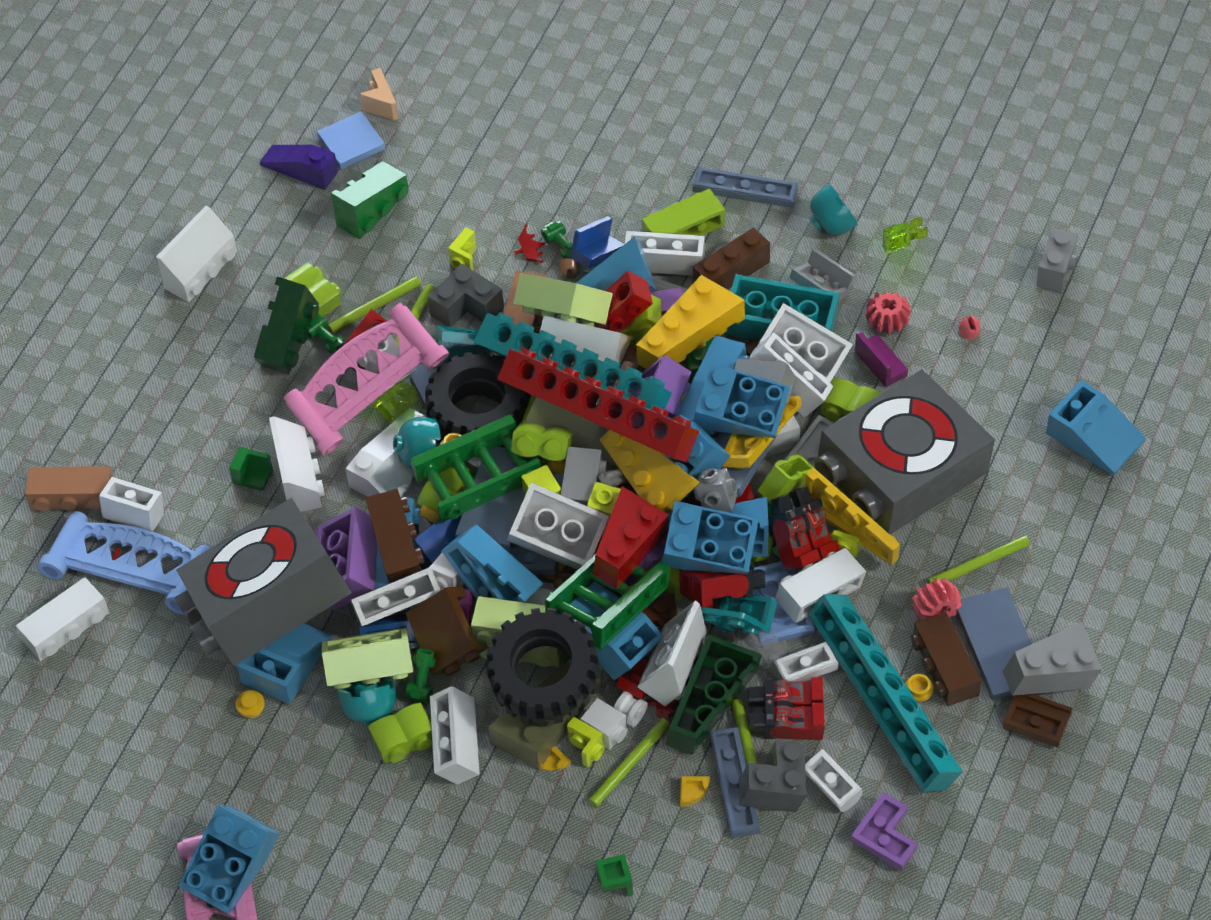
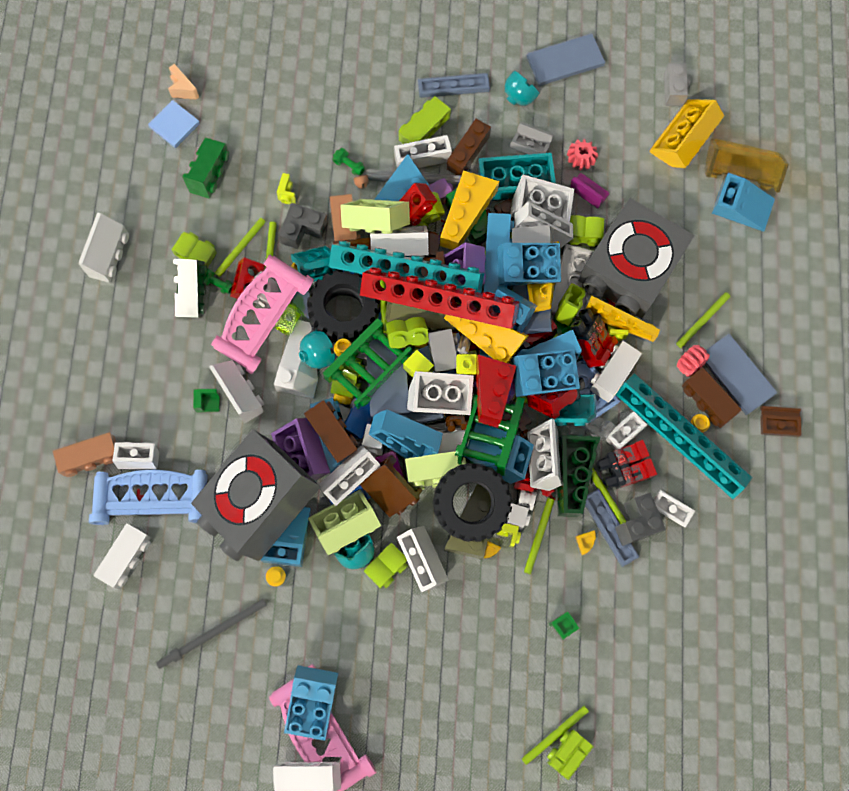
camera: 25 degrees left, 20 degrees up
(80, 757) = (176, 654): none -> dark grey bar
(303, 163) = (147, 152): dark purple slope -> none
(418, 690) = (385, 529): green bar -> none
(529, 246) = (327, 172): red piece -> none
(593, 243) = (375, 160): blue panel -> none
(716, 490) = (538, 336): light grey brick -> none
(878, 832) = (714, 537): medium lavender plate -> none
(900, 235) = (569, 94): clear neon green plate -> none
(914, 194) = (565, 59): none -> sand blue tile
(964, 327) = (633, 150): coral hinge -> none
(1051, 324) = (687, 132): none -> yellow slope
(1054, 664) = (782, 381): light grey wedge -> none
(1119, 379) = (746, 162): none -> clear yellow windscreen

